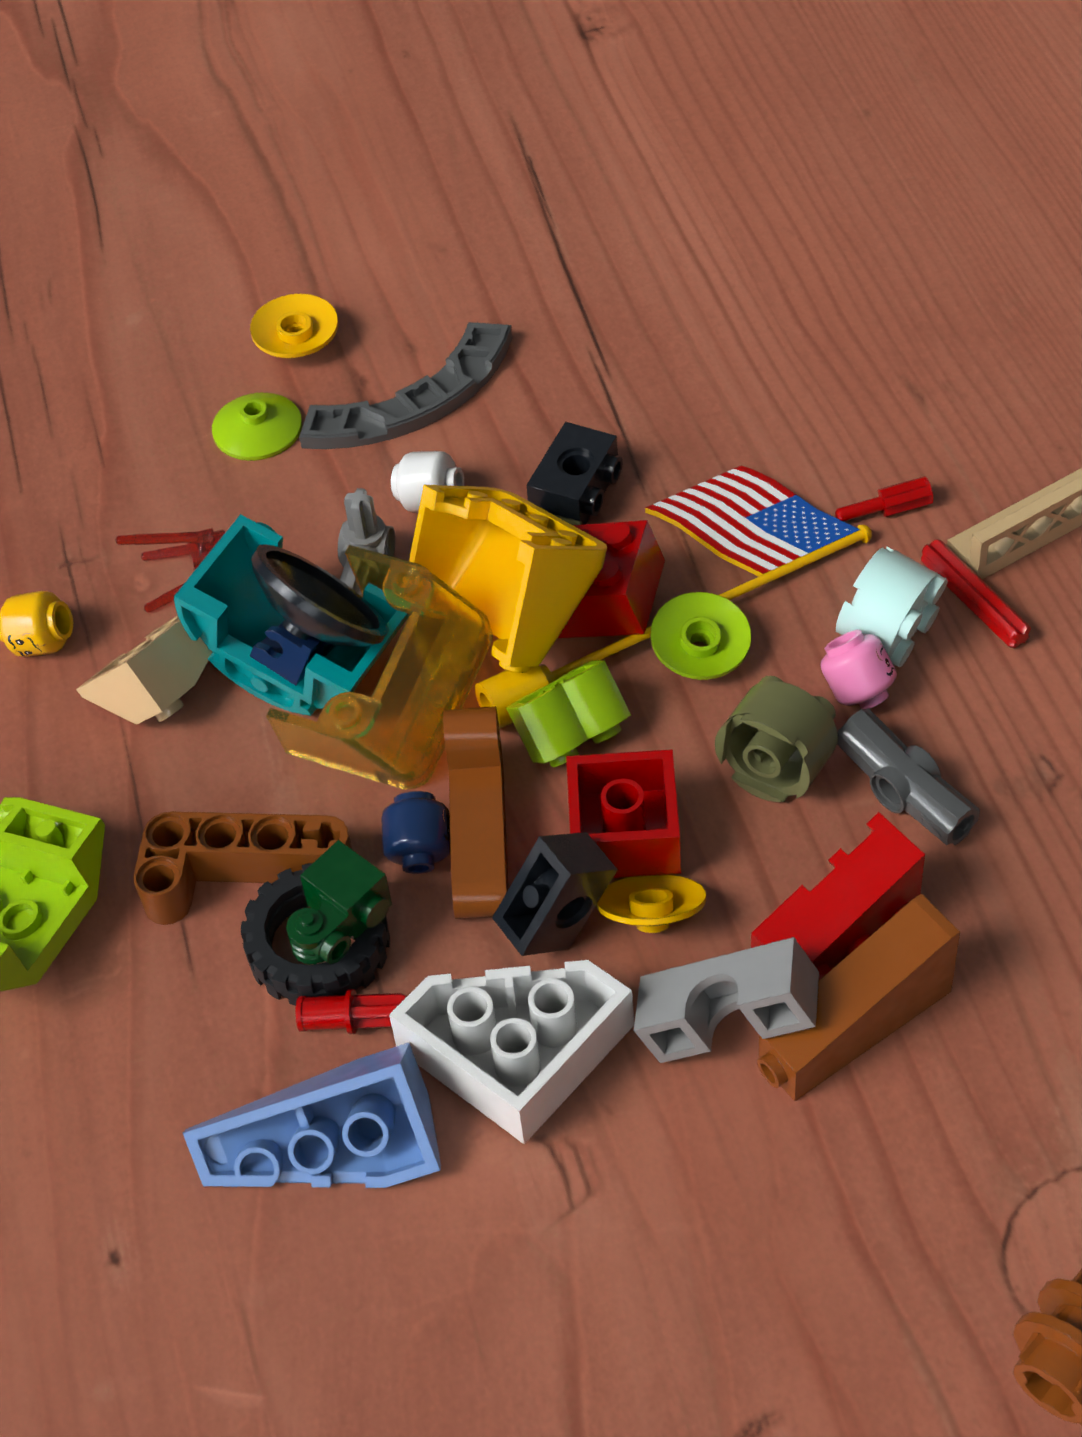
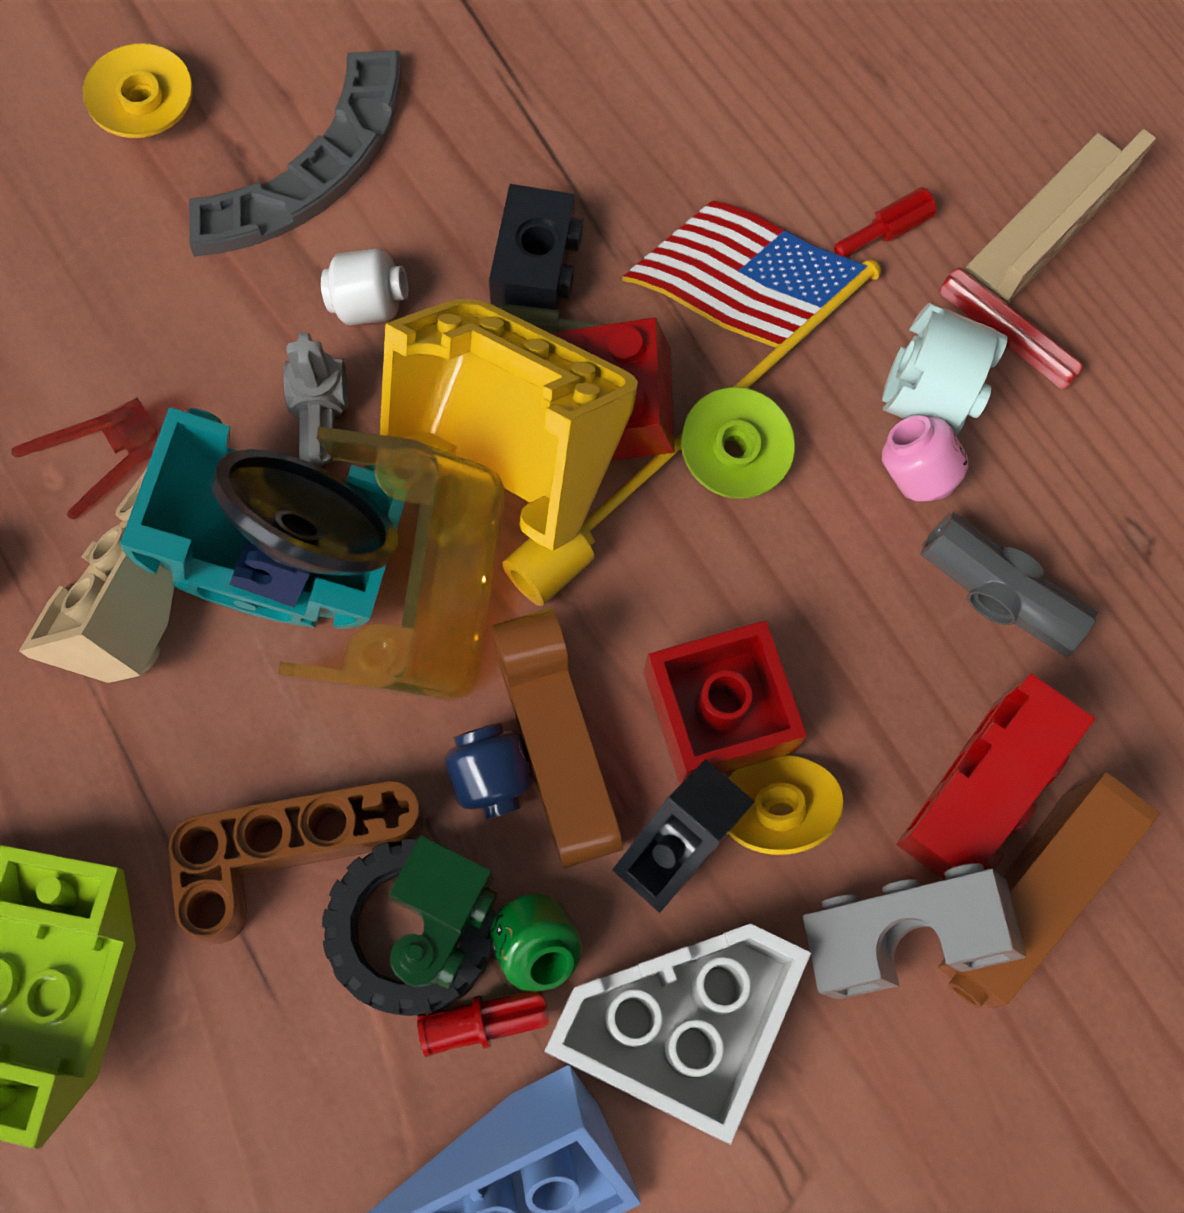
camera: 25 degrees left, 20 degrees up
(257, 426) = (132, 252): lime dish -> none
(409, 953) = (535, 942): none -> green head
(569, 713) = (622, 577): lime brick -> none
(777, 739) = (867, 571): olive brick -> none

